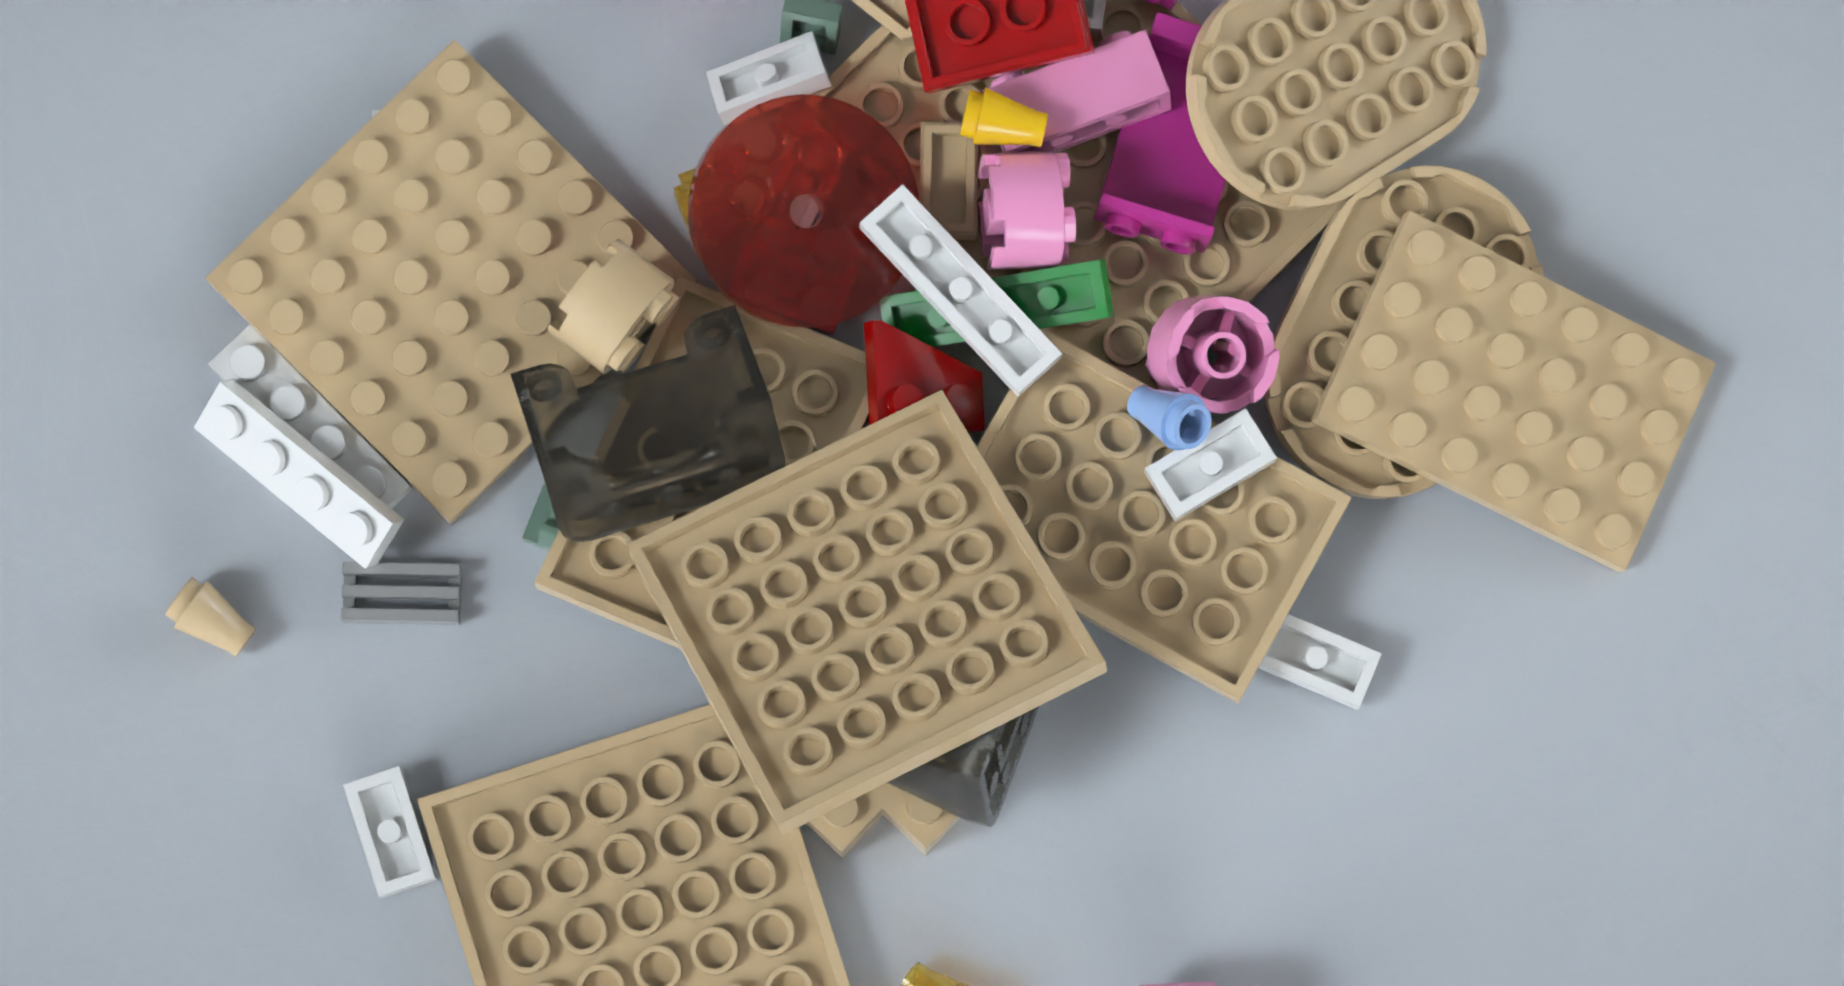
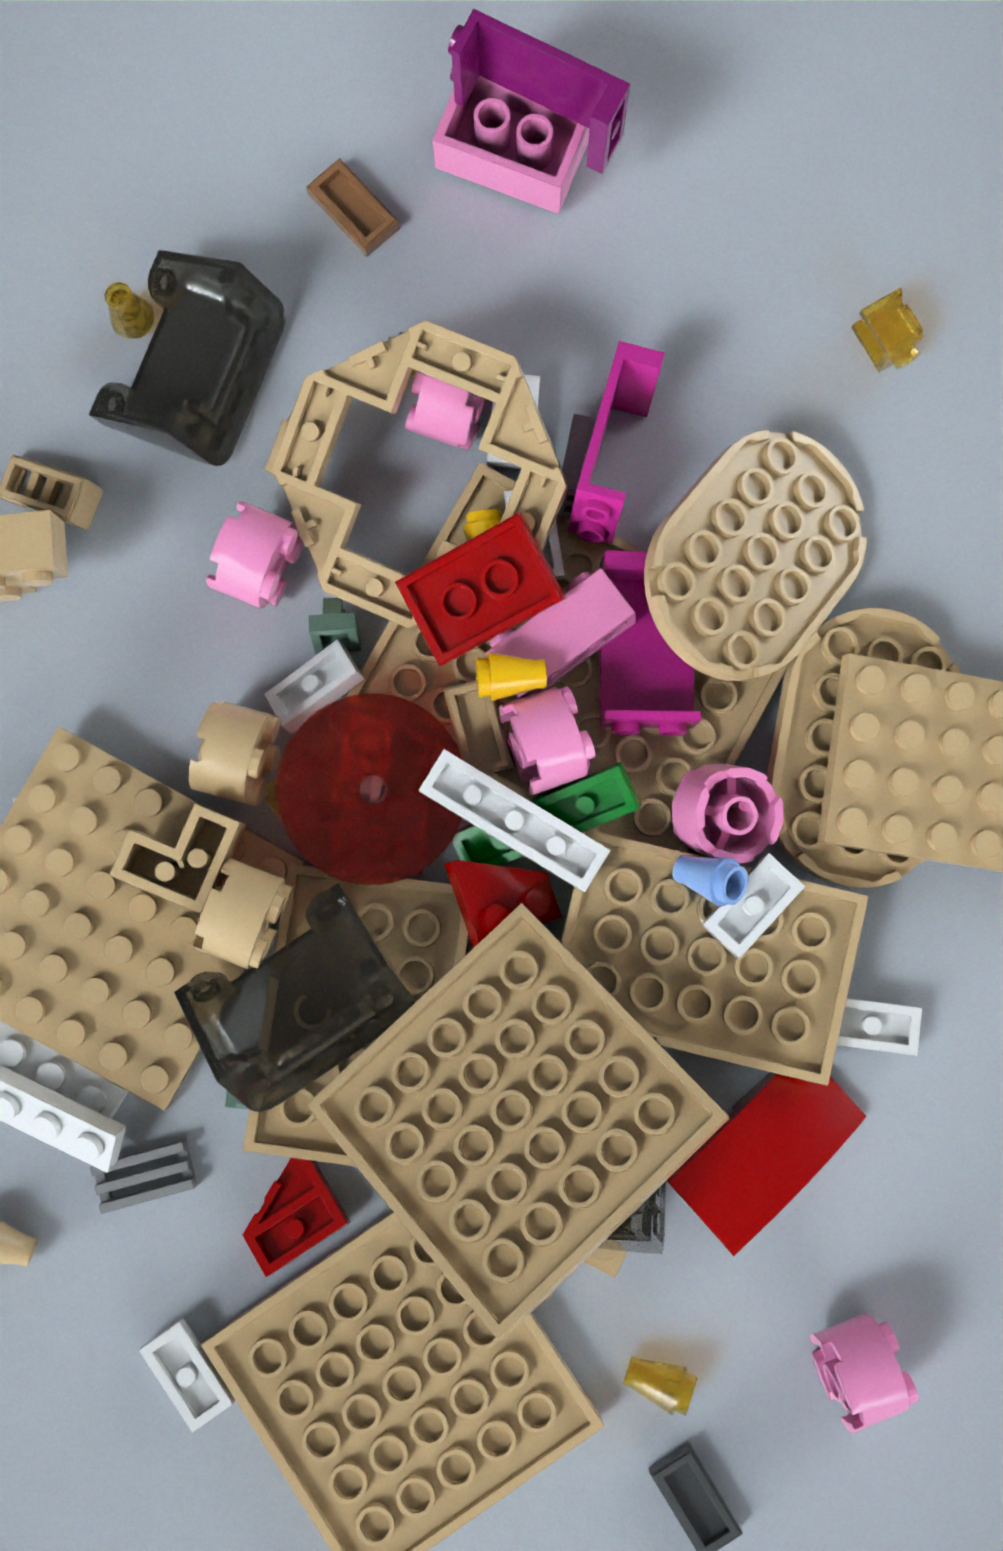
camera: 10 degrees left, 5 degrees up
(566, 239) = (185, 870): none -> tan brick
(567, 687) = (294, 1217): none -> red wing
(655, 127) = (235, 752): none -> tan brick
(1146, 766) = (765, 1155): none -> red slope

